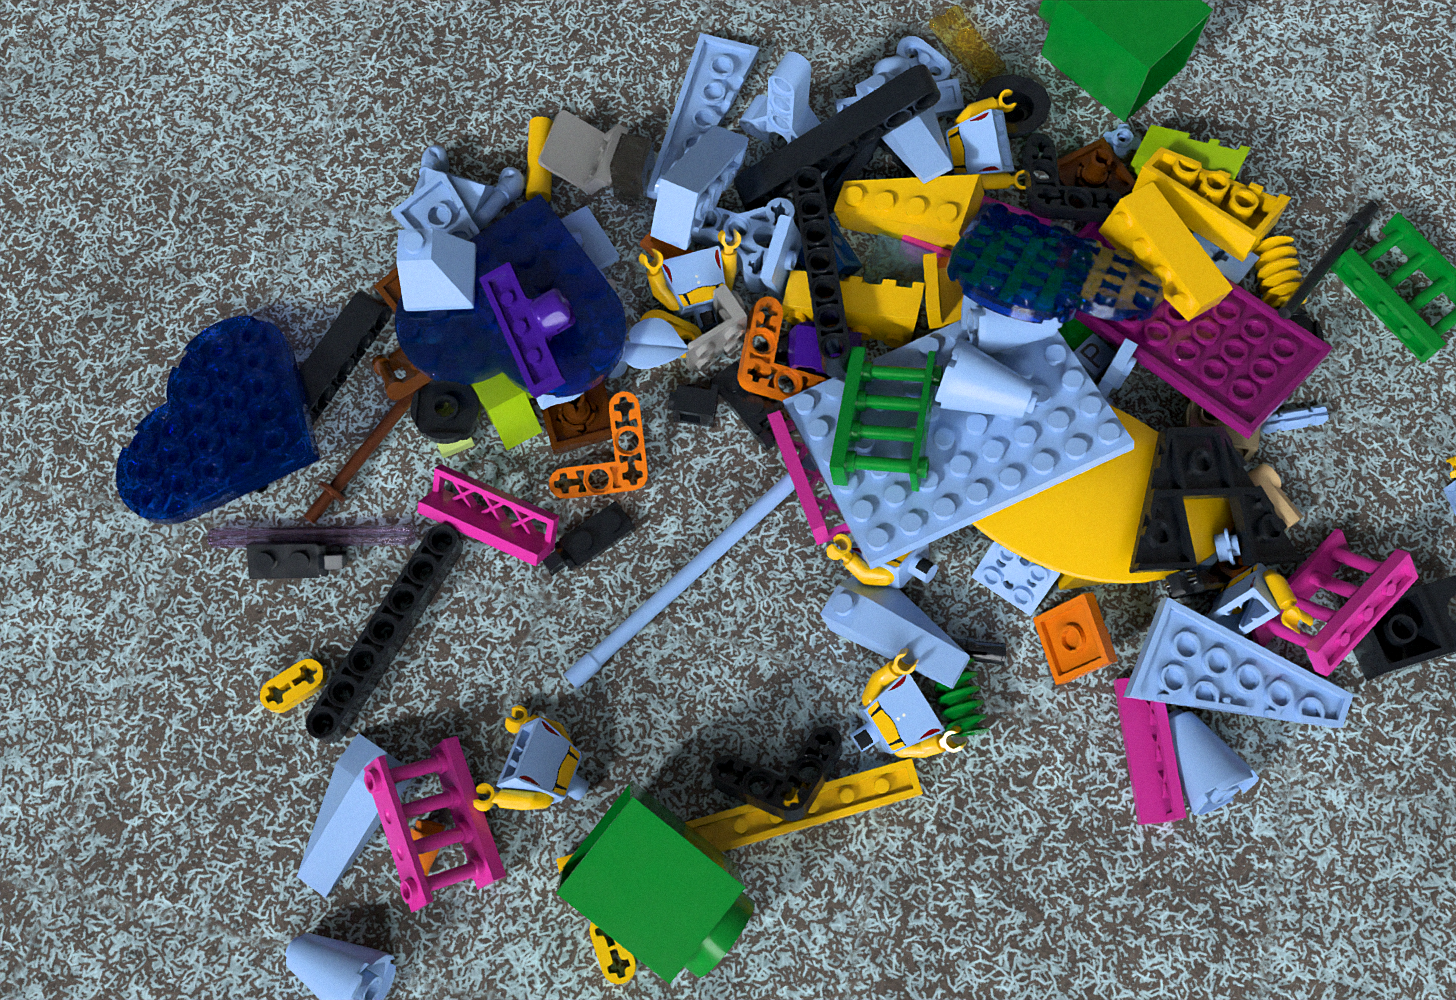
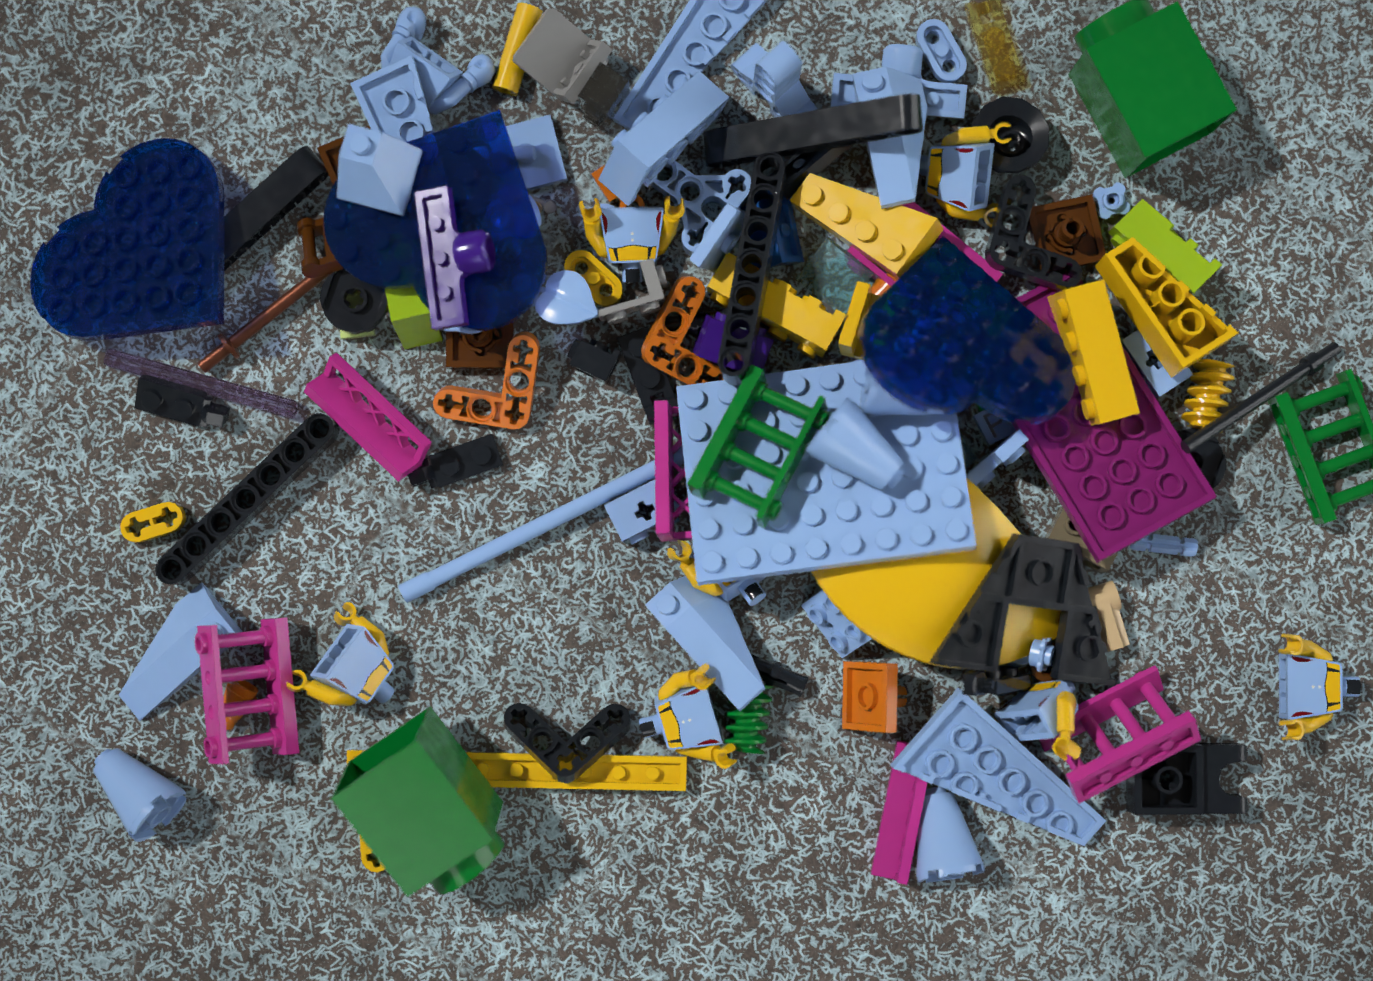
camera: 20 degrees right, 15 degrees up
(768, 533) = (623, 512): none -> light blue brick

